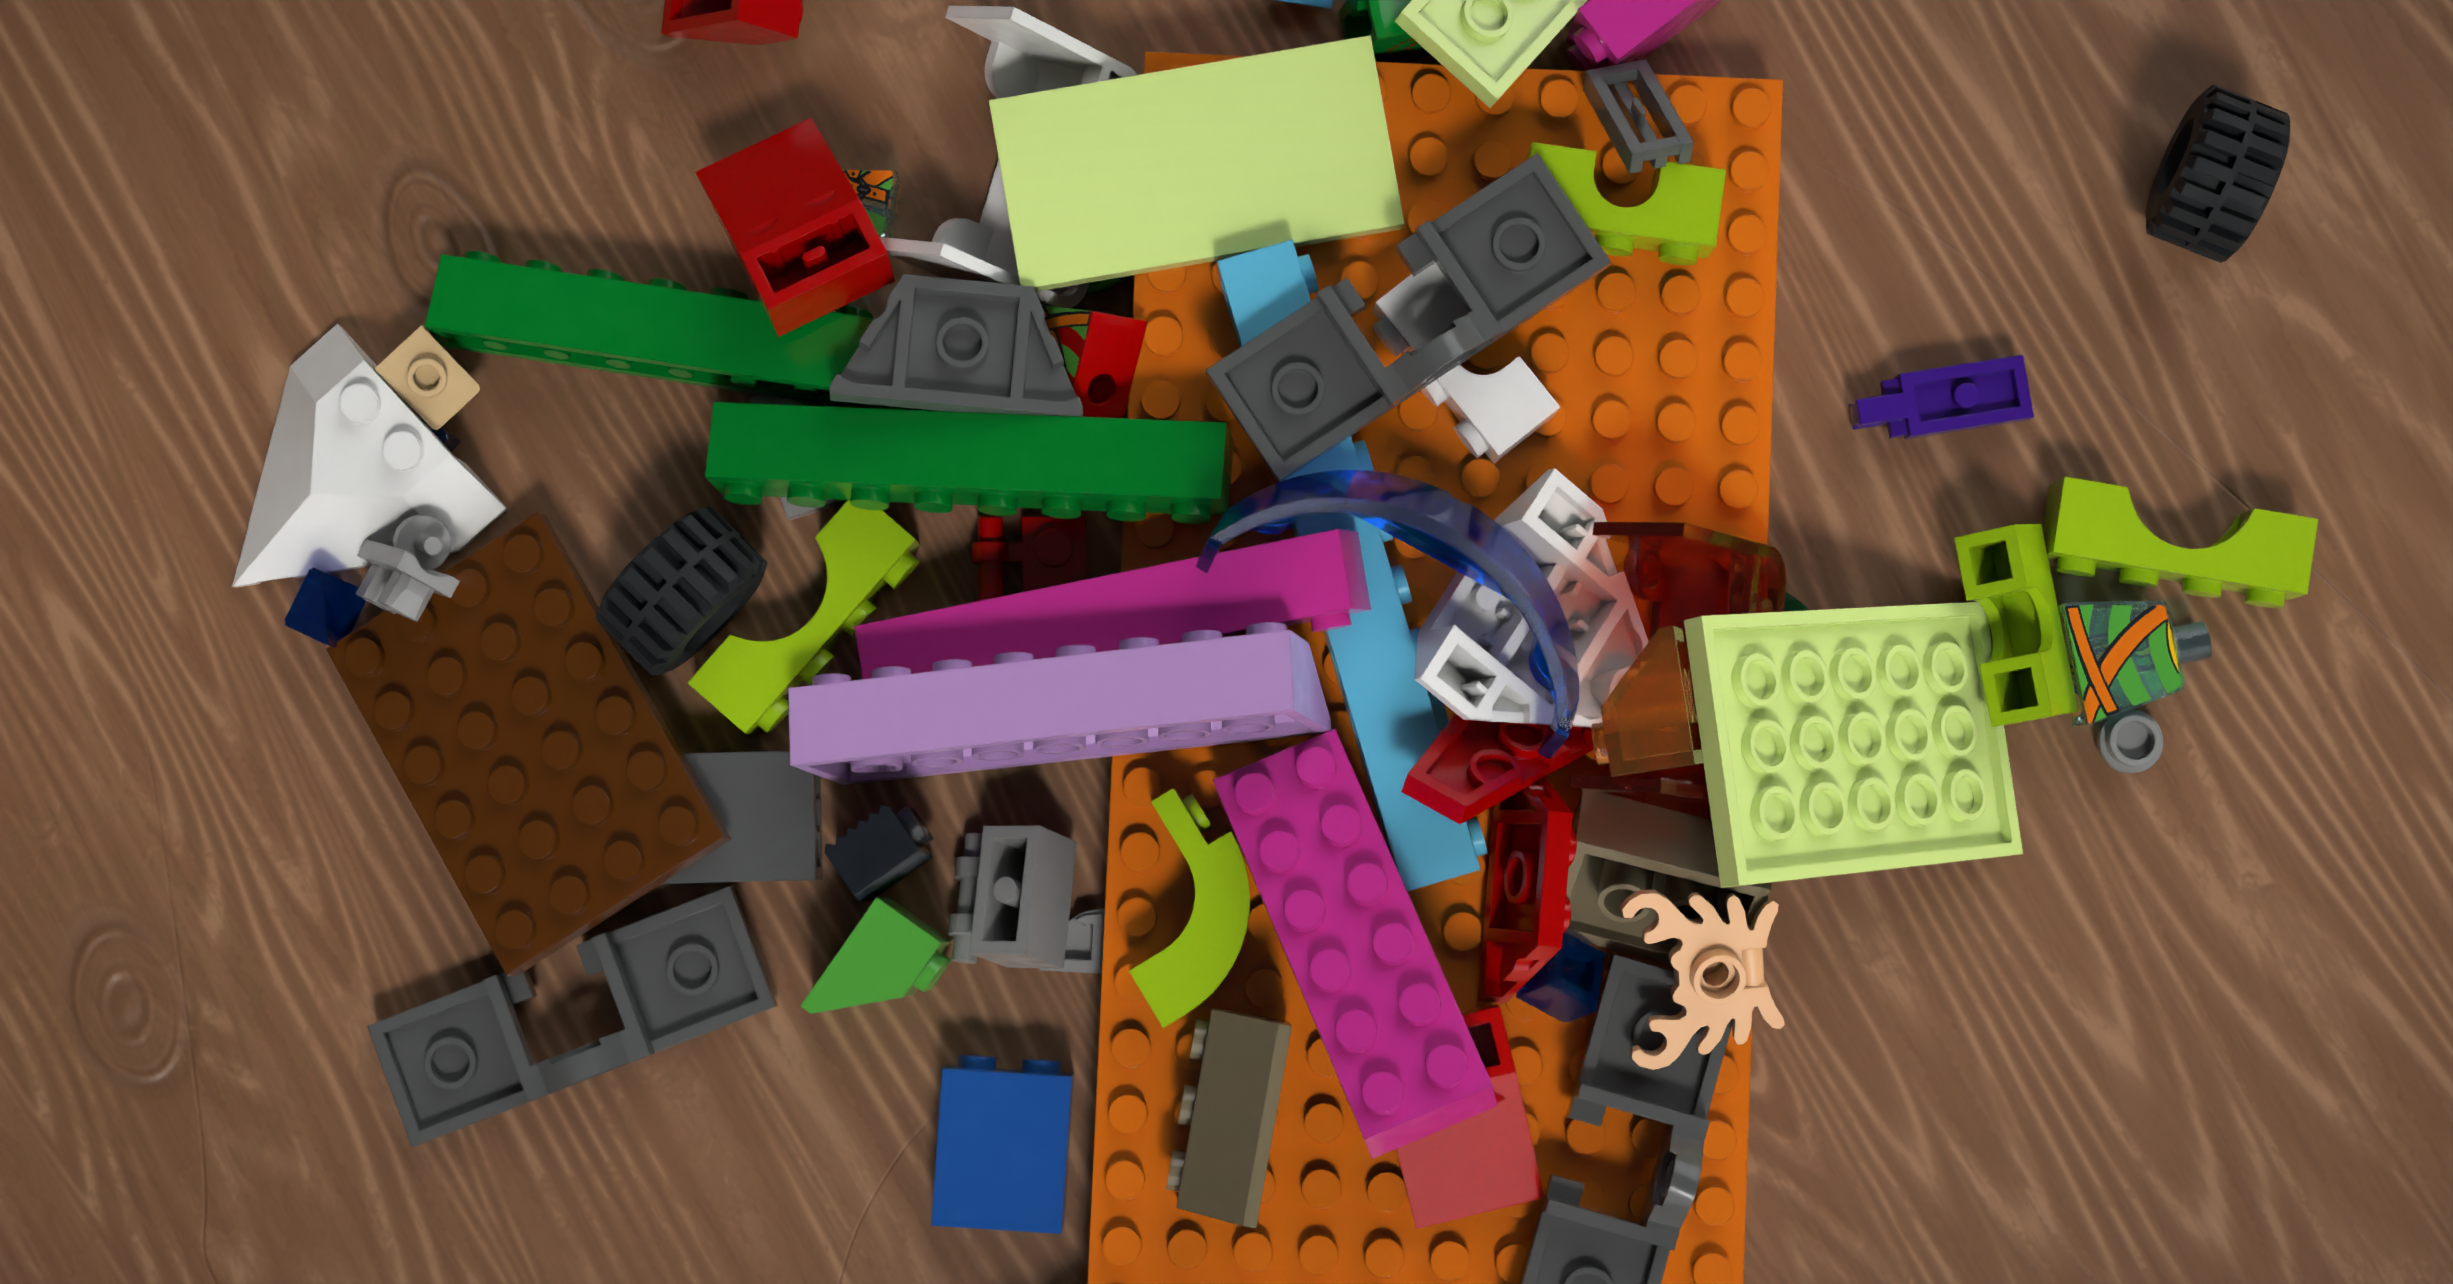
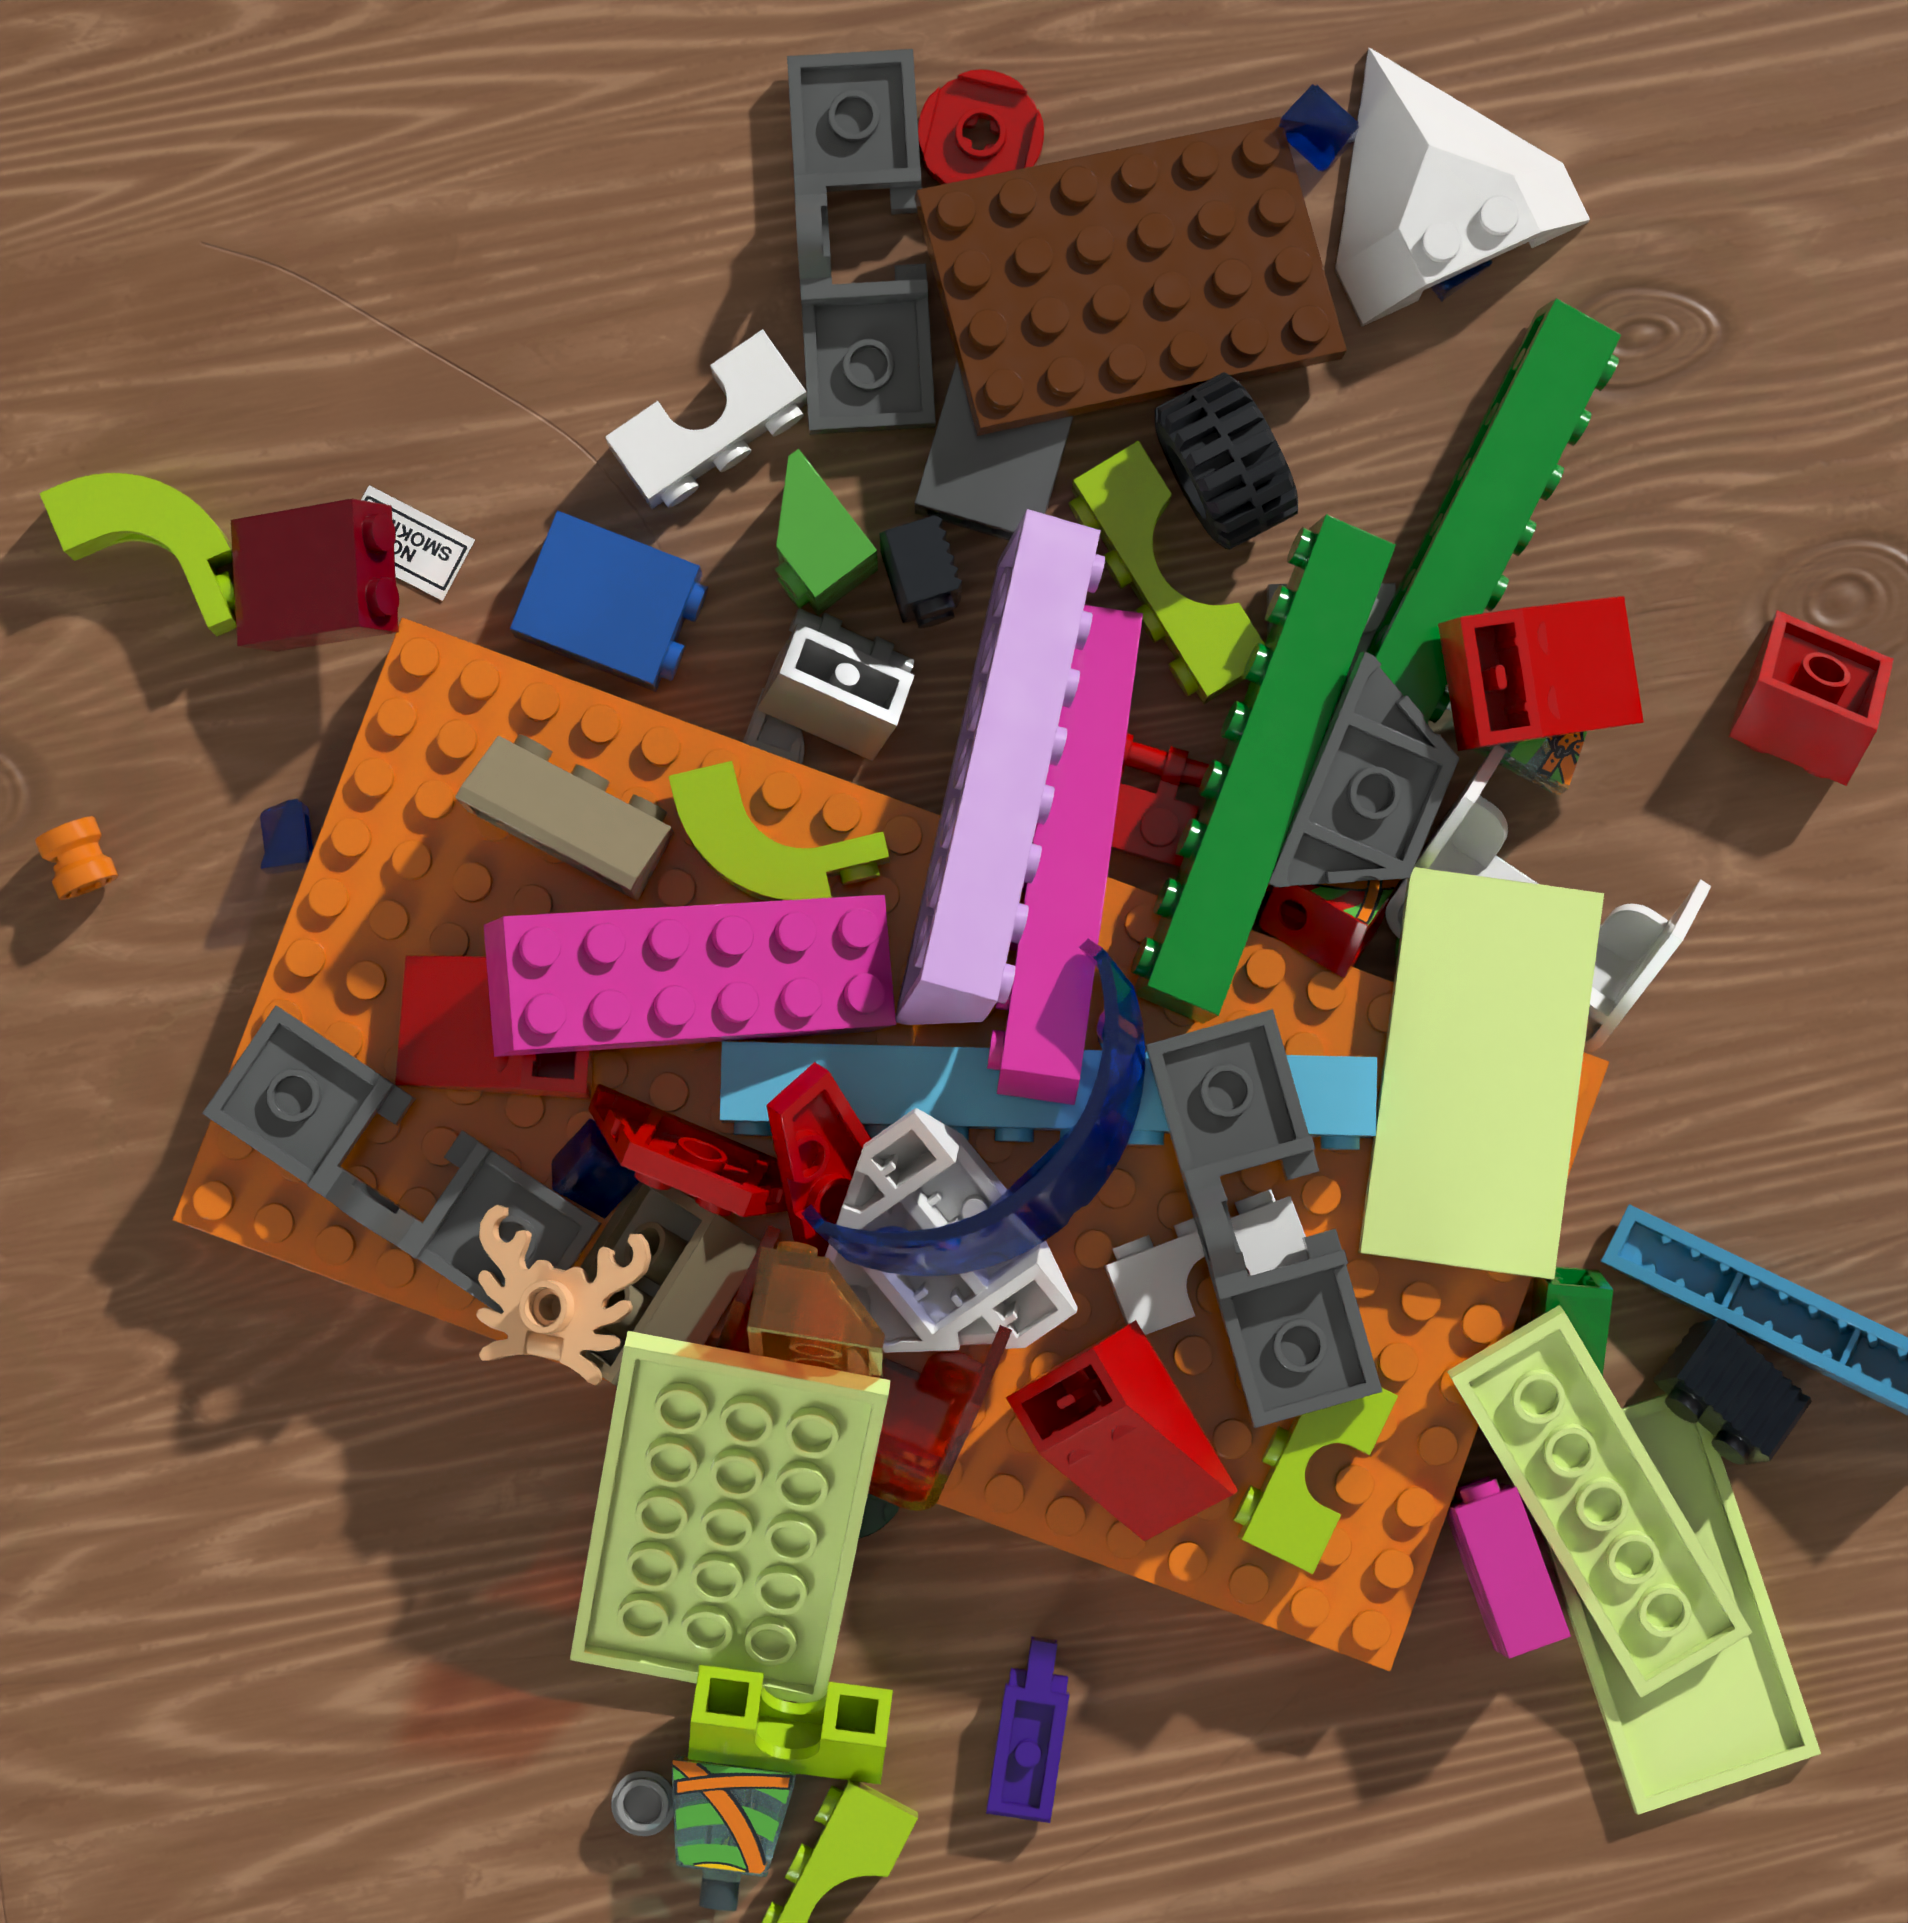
camera: 105 degrees right, 0 degrees up
(403, 575) = (1323, 207): light grey hips -> none
(408, 962) = (960, 106): none -> red plate
(428, 378) = (1506, 286): tan bracket -> none
(845, 1134) = (668, 458): none -> white arch
(1625, 116) = (1354, 1508): dark grey tile -> none
(1650, 390) = (1123, 1434): none -> red slope

